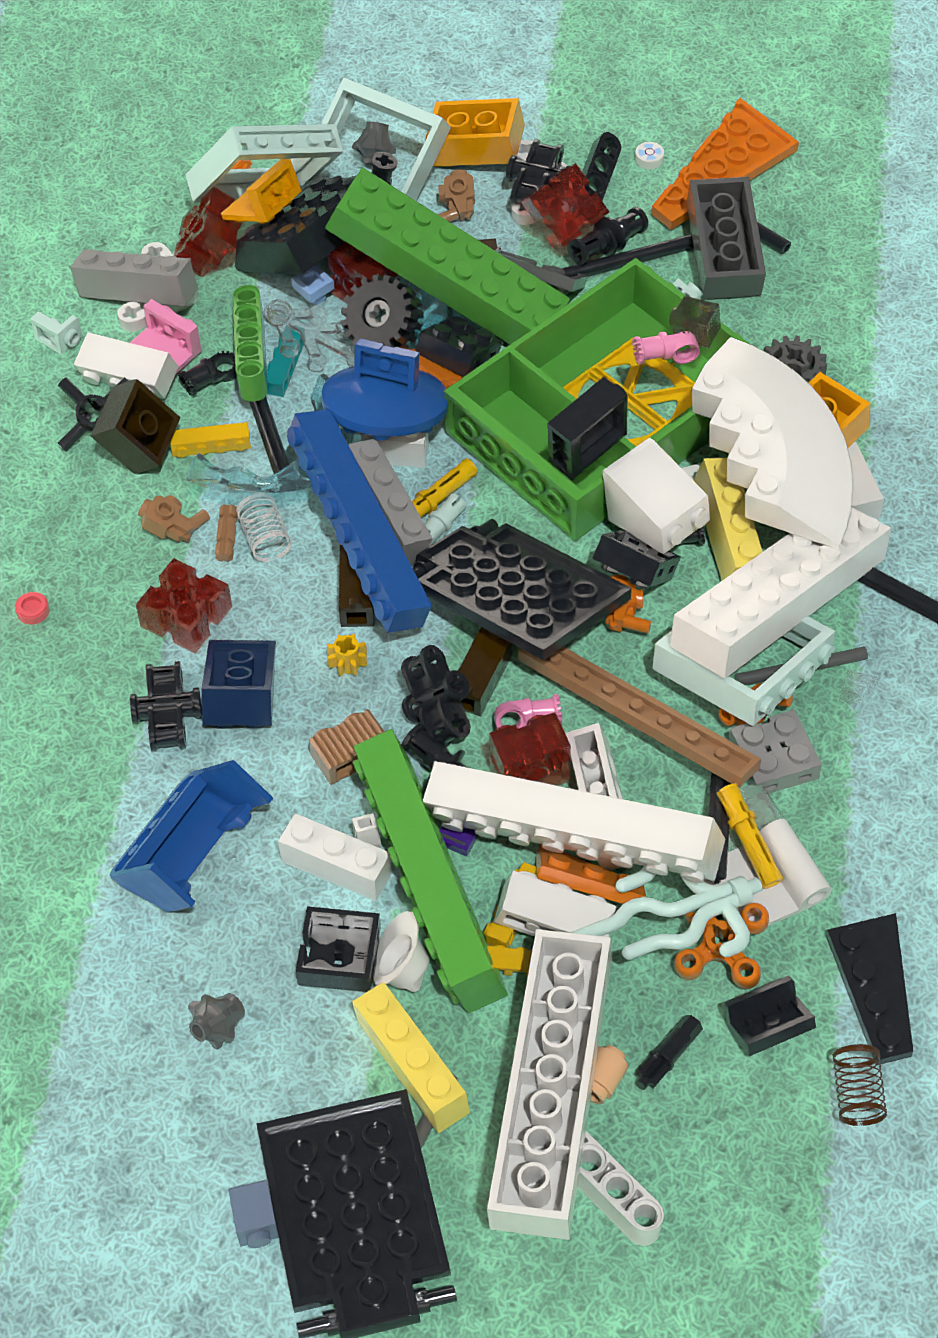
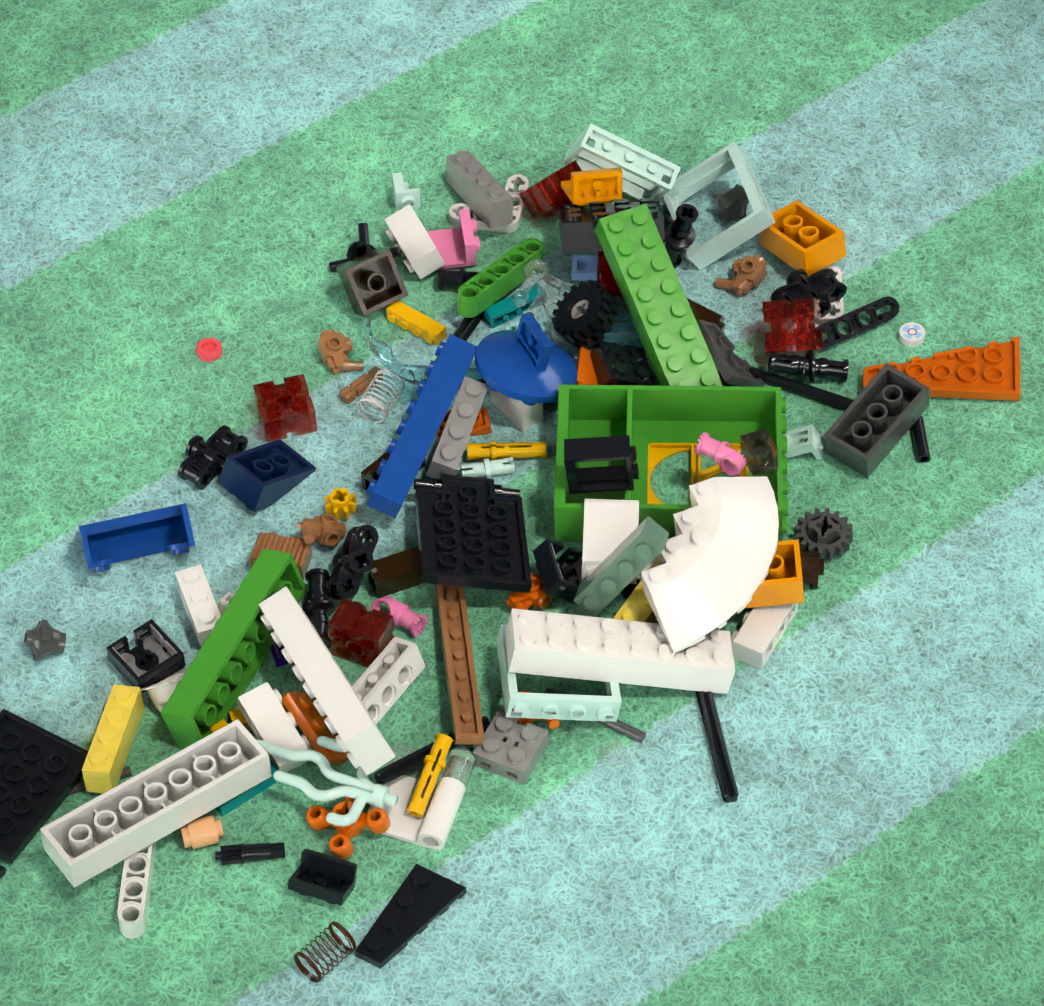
camera: 45 degrees right, 5 degrees down
(363, 691) = (322, 530): none -> medium nougat piece
(714, 505) = (621, 567): none -> sand green brick

